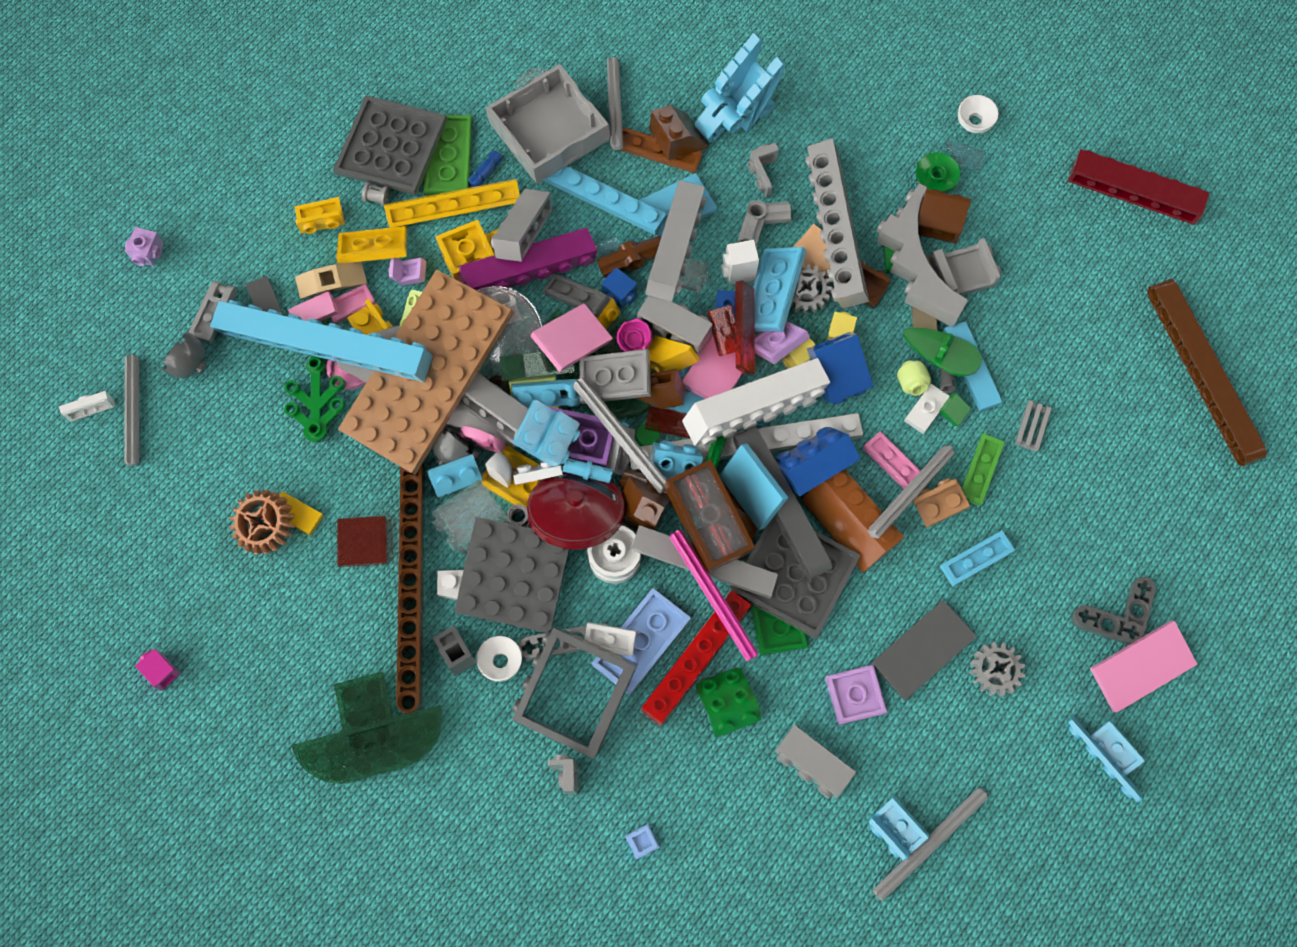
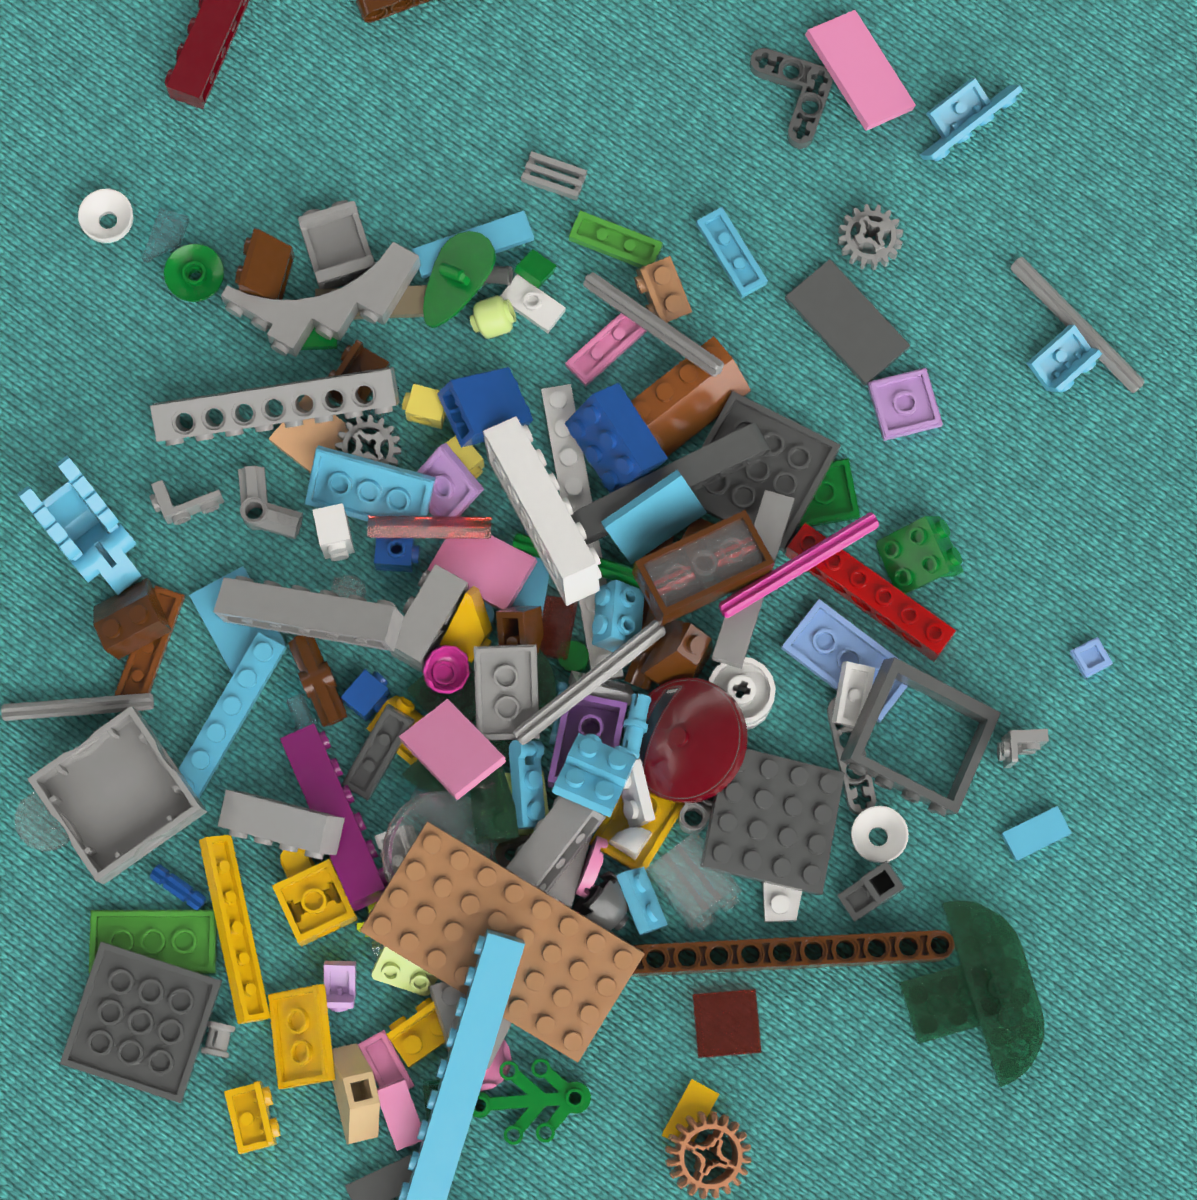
camera: 90 degrees left, 5 degrees up
(497, 788) = (1036, 833): none -> medium azure tile
(723, 329) = (427, 552): clear red plate -> none
(814, 762) = (991, 454): light grey brick -> none

